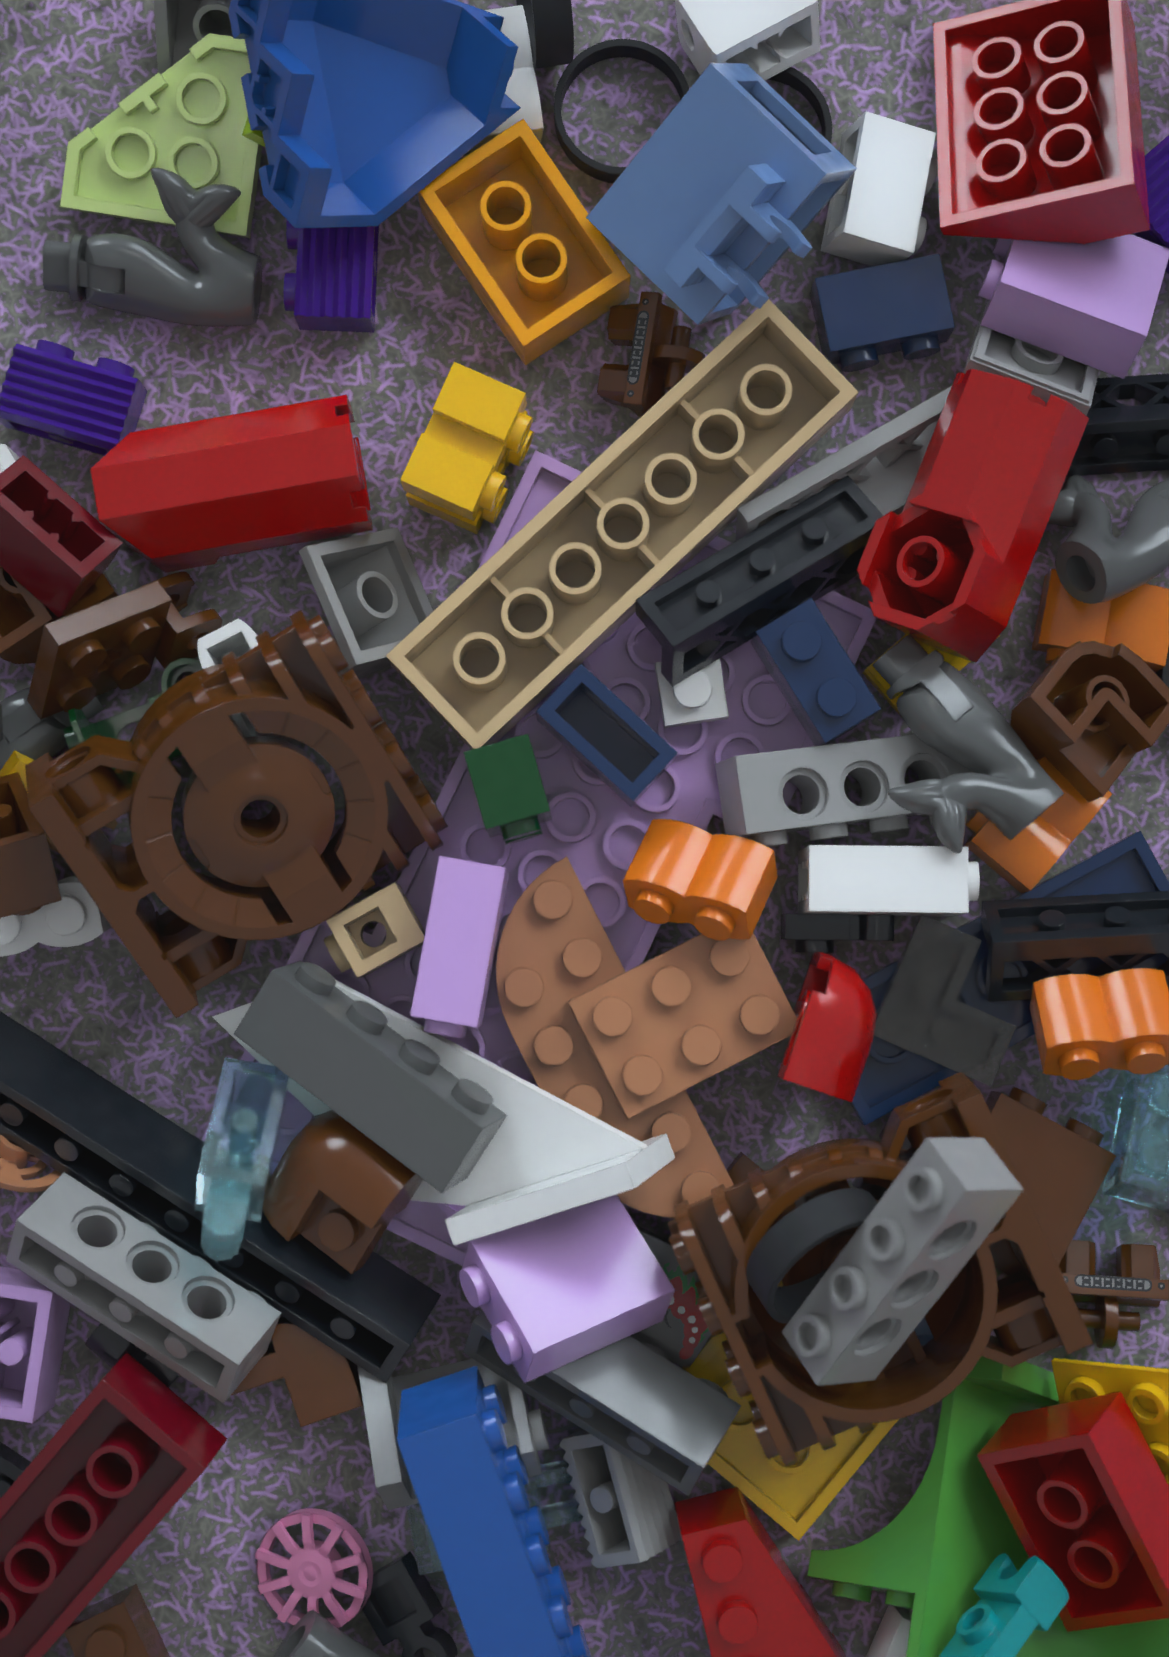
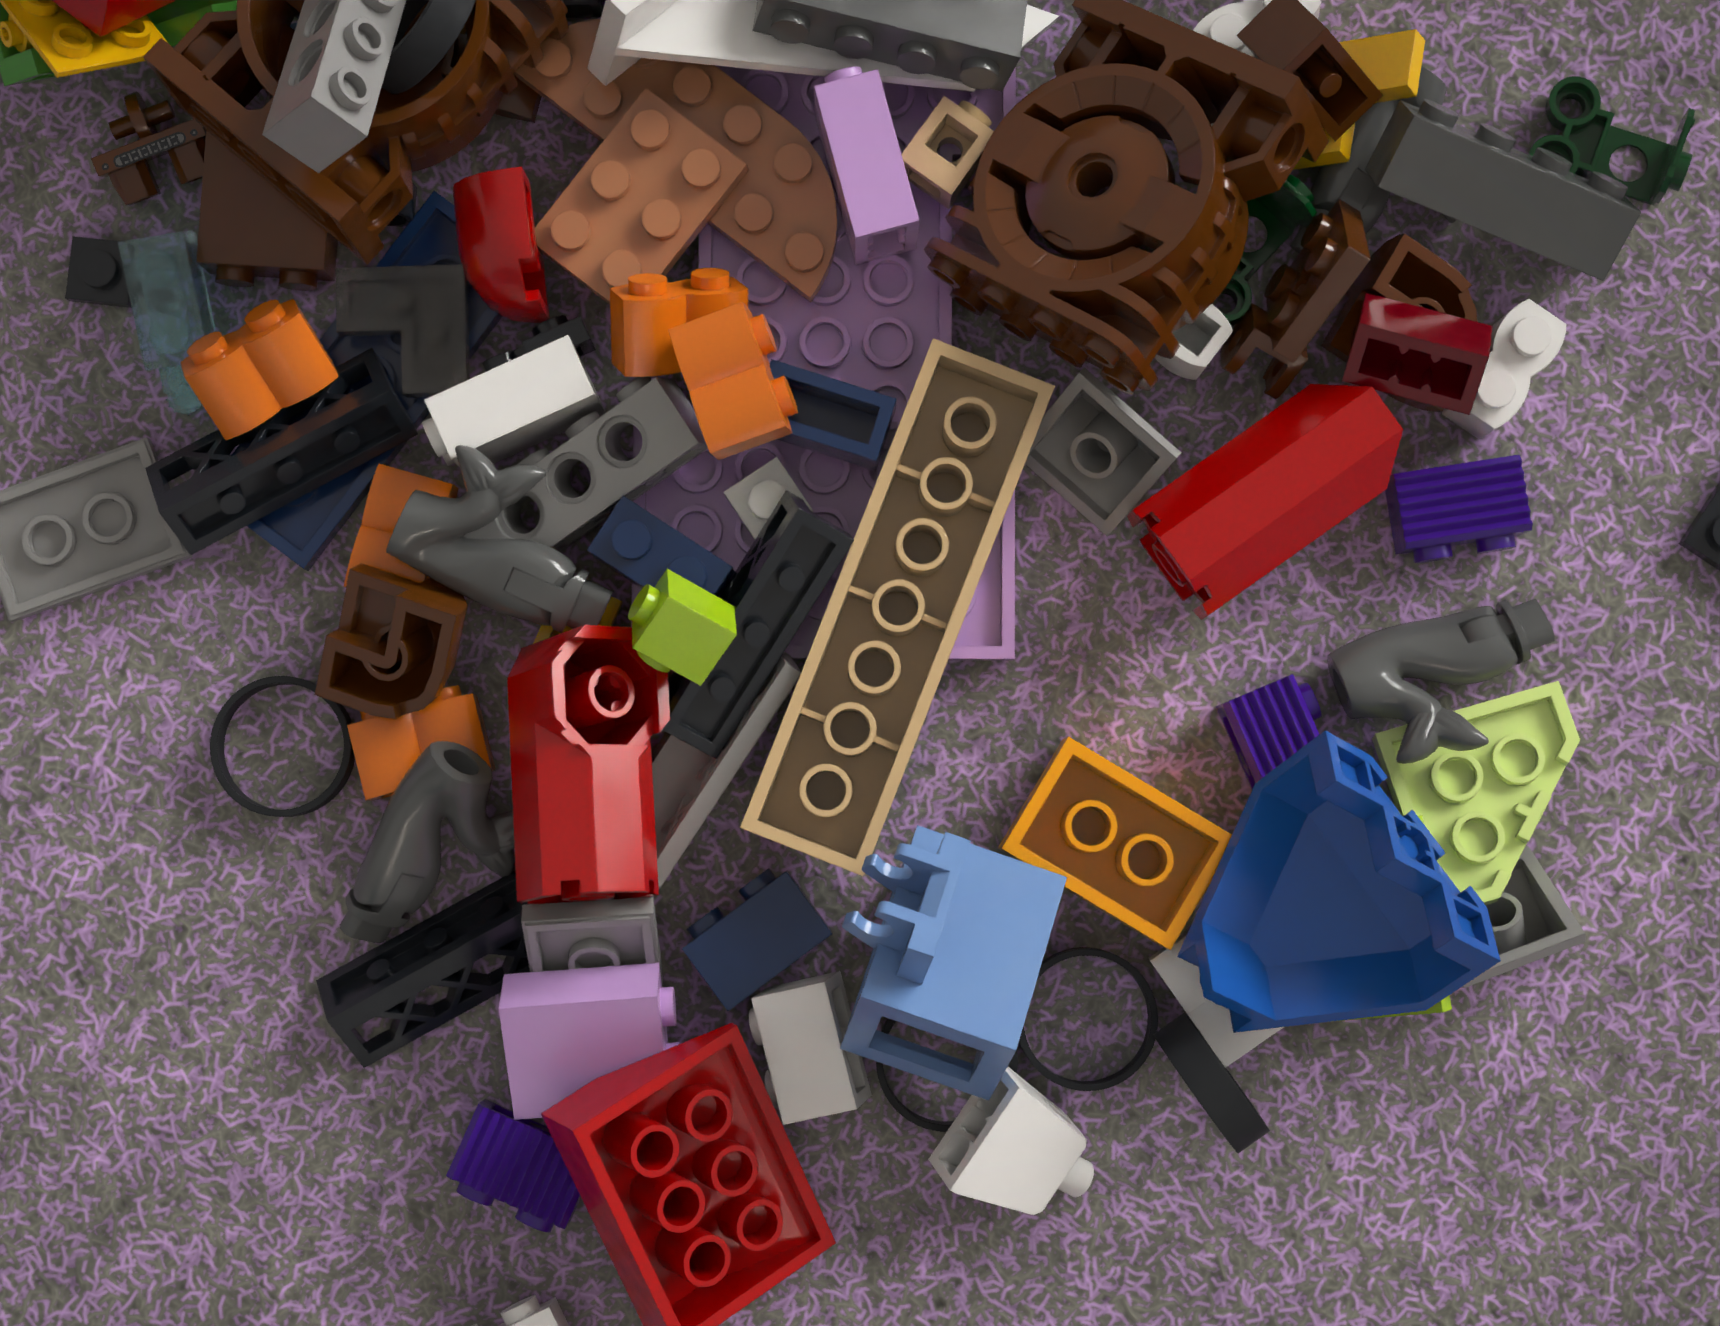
camera: 155 degrees right, 0 degrees up
(466, 449) = (1075, 620): yellow brick -> none
(509, 789) = (887, 322): dark green brick -> none
(657, 356) = (943, 792): reddish brown hips -> none
(680, 790) = (732, 380): none -> orange brick
(828, 589) = (681, 627): none -> lime brick

